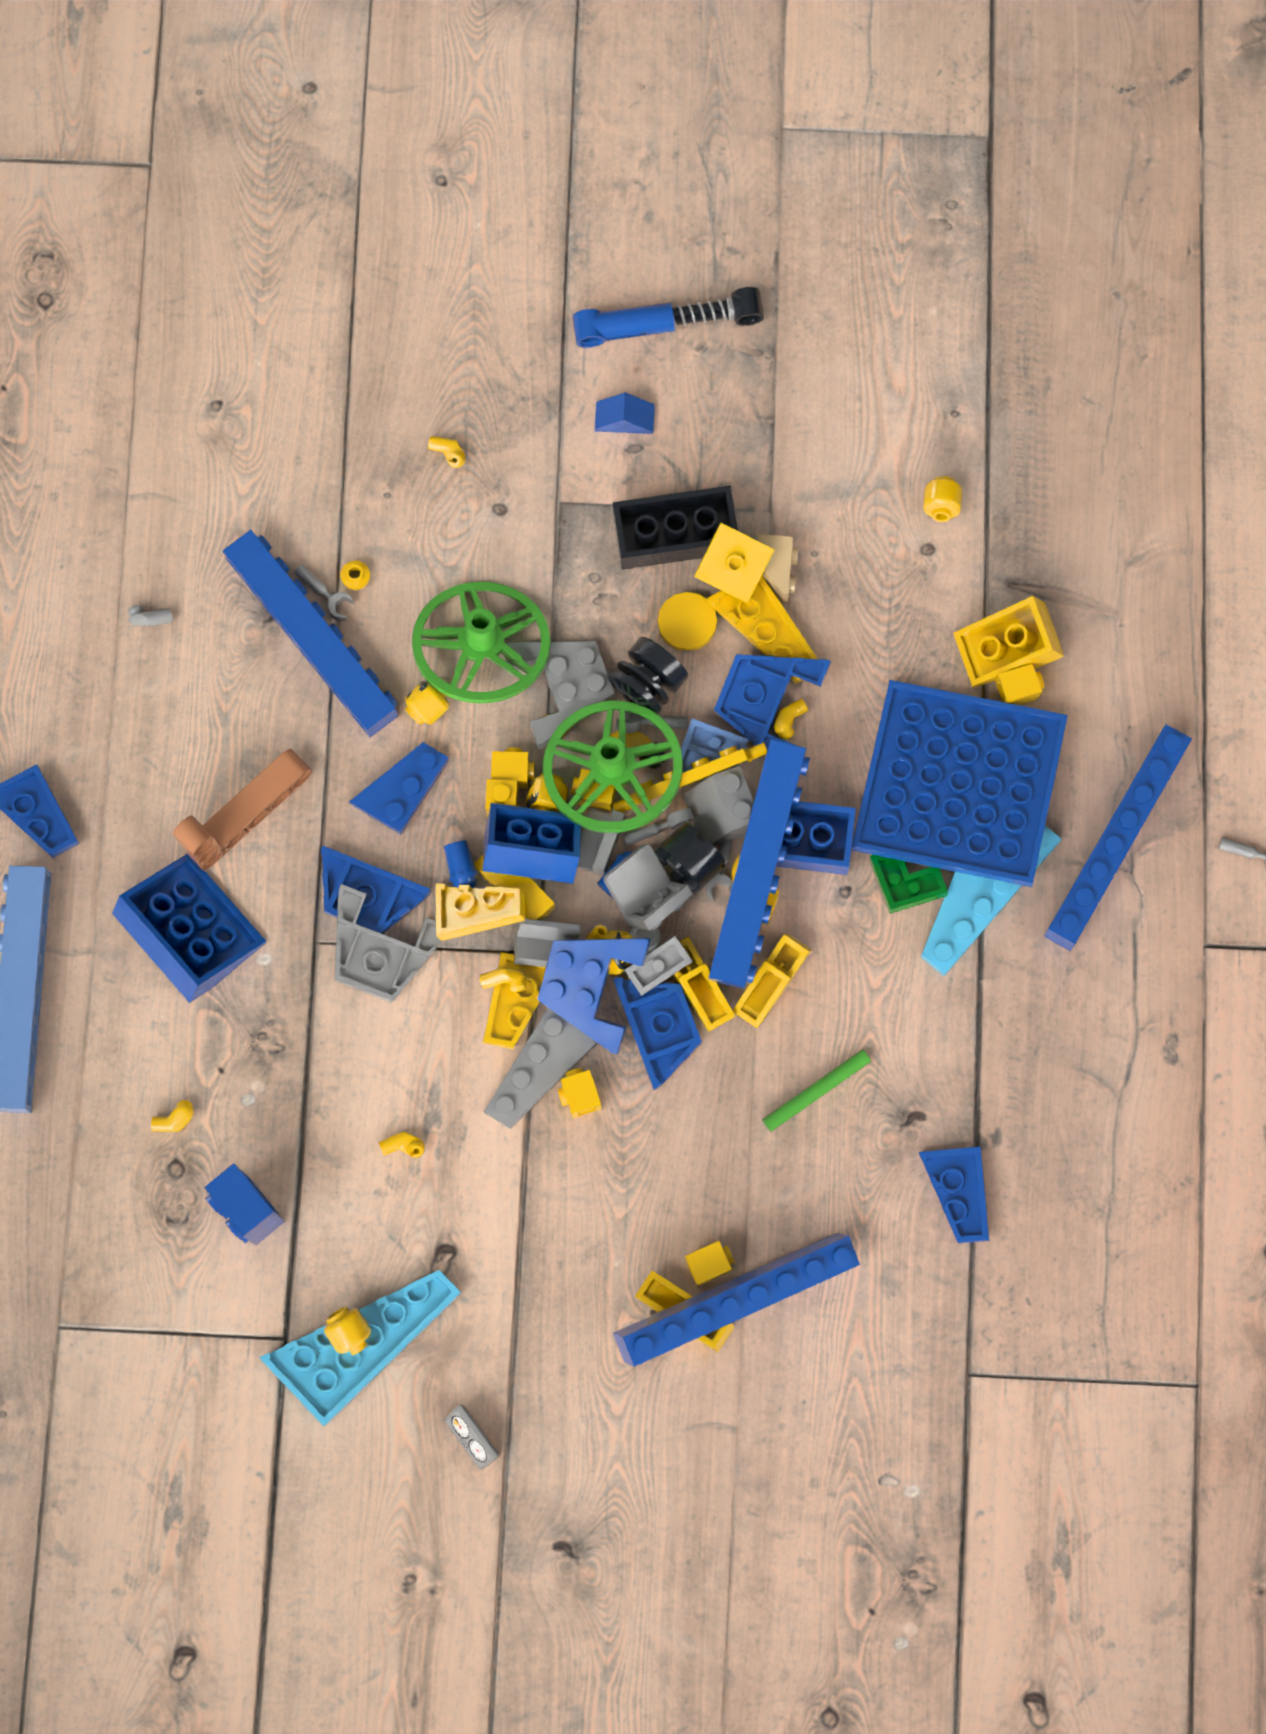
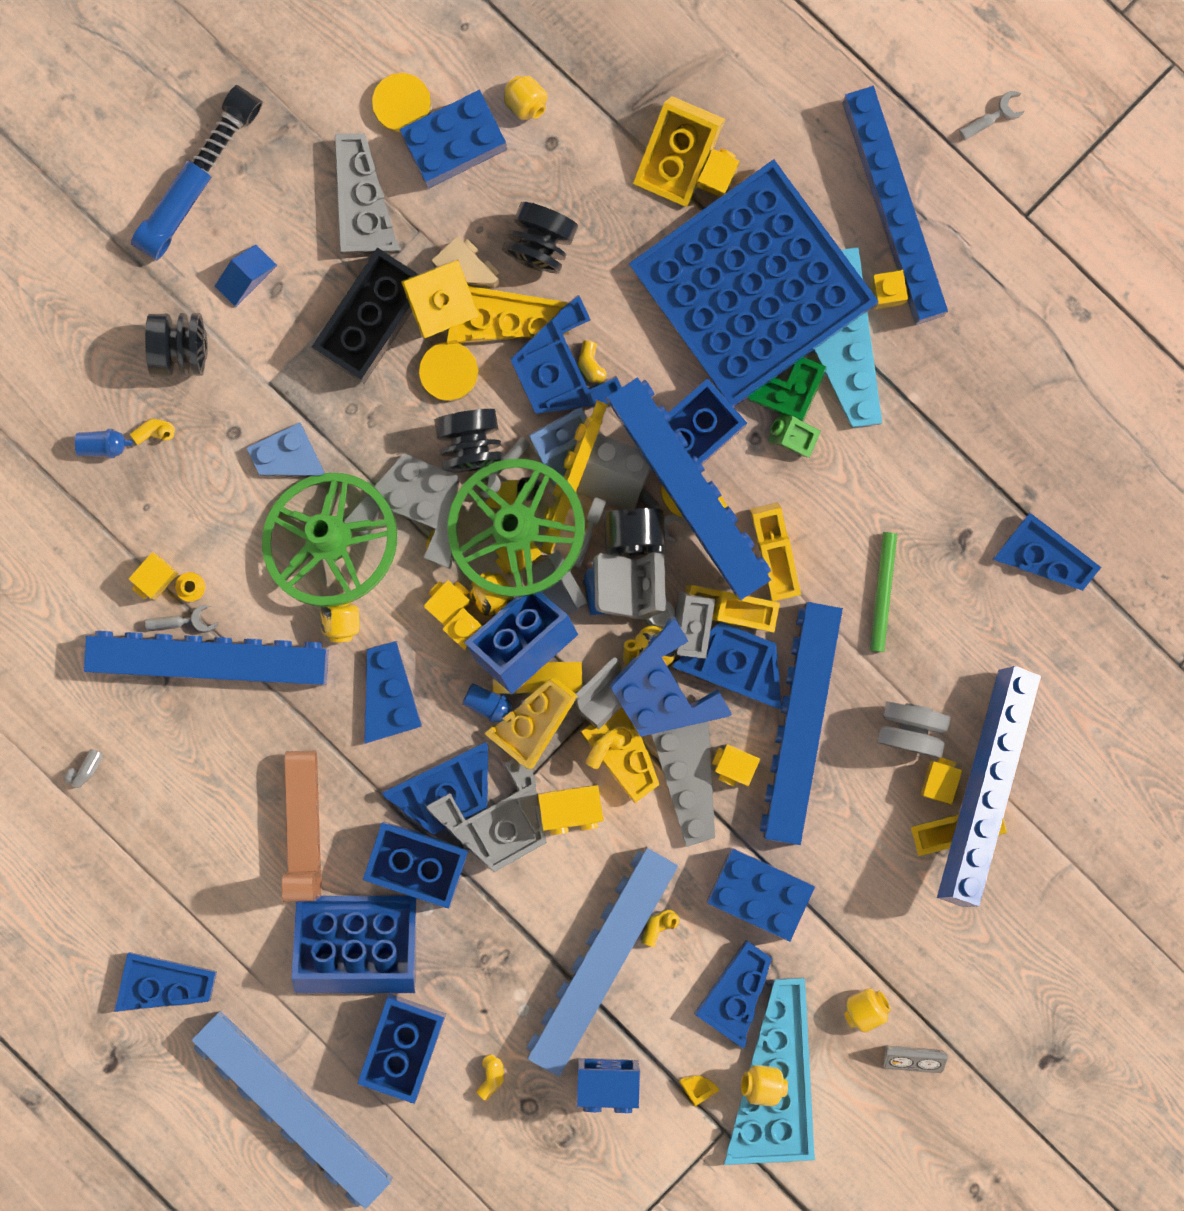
camera: 50 degrees left, 10 degrees up
(137, 1028) = (401, 1048): none -> blue brick
(289, 917) = (416, 864): none -> blue brick
(302, 1287) = (698, 1088): none -> yellow tile
(337, 1123) = (602, 961): none -> medium blue brick
(338, 541) = (152, 577): none -> yellow brick
(401, 1250) = (734, 996): none -> blue wing
(404, 420) = (101, 443): none -> blue piece
(435, 993) = (571, 808): none -> yellow brick
(478, 1363) = (867, 1010): none -> yellow head
(496, 1199) = (760, 894): none -> blue brick
(517, 558) = (286, 454): none -> medium blue wing
(525, 407) = (173, 345): none -> black wheel
(658, 1115) = (802, 723): none -> blue brick
(732, 1201) = (914, 726): none -> light grey wheel
(754, 450) = (360, 199): none -> light grey wing
(852, 595) = (541, 234): none -> black wheel
(856, 416) = (400, 101): none -> yellow tile
(863, 474) = (453, 139): none -> blue brick
(874, 916) = (794, 435): none -> bright green bracket
(1050, 888) = (889, 289): none -> yellow brick

